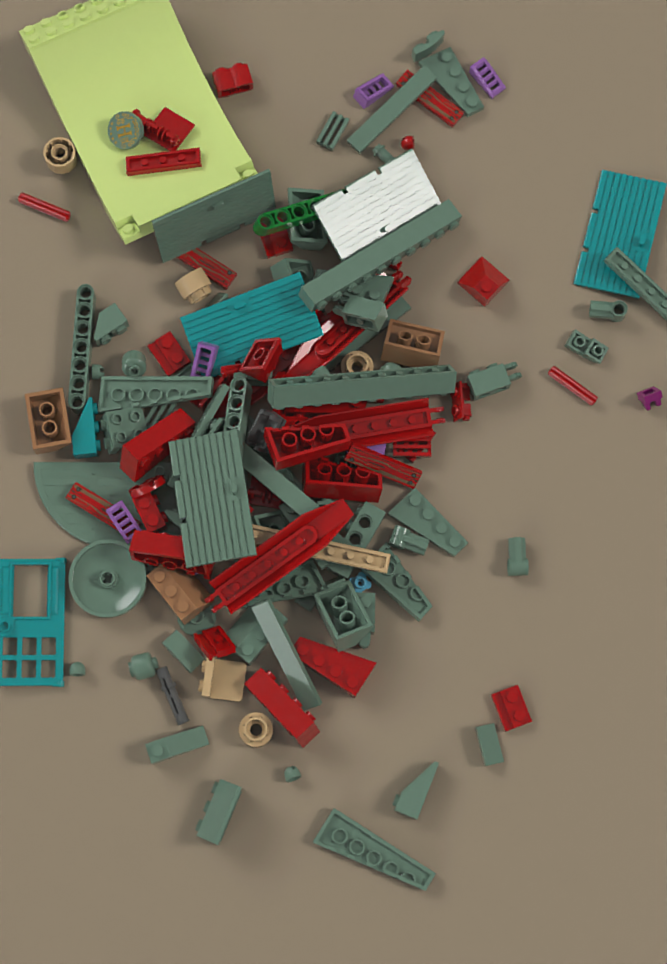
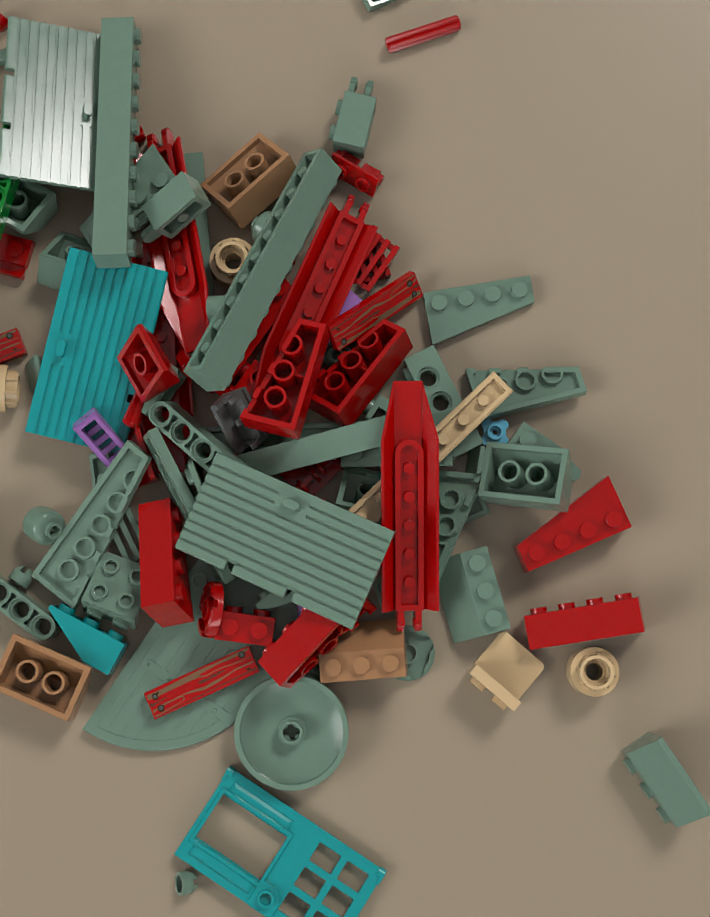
camera: 50 degrees left, 5 degrees up
(77, 669) = (377, 840): sand green hinge -> none
(113, 509) = (236, 676): medium lavender slope -> none
(143, 666) = (426, 757): sand green head -> none
(169, 354) = (60, 474): red plate -> none
(171, 693) = (485, 745): dark grey pin -> none
(176, 744) = (548, 779): sand green slope -> none
(183, 651) = (440, 696): sand green slope -> none
(215, 642) = (458, 653): red plate -> none
(286, 654) = (529, 575): sand green tile -> none
(292, 774) = (670, 662): sand green hinge -> none
(404, 539) = (476, 346): sand green piece -> none
(483, 281) = (228, 50): red slope -> none
(517, 563) = (590, 235): sand green piece -> none

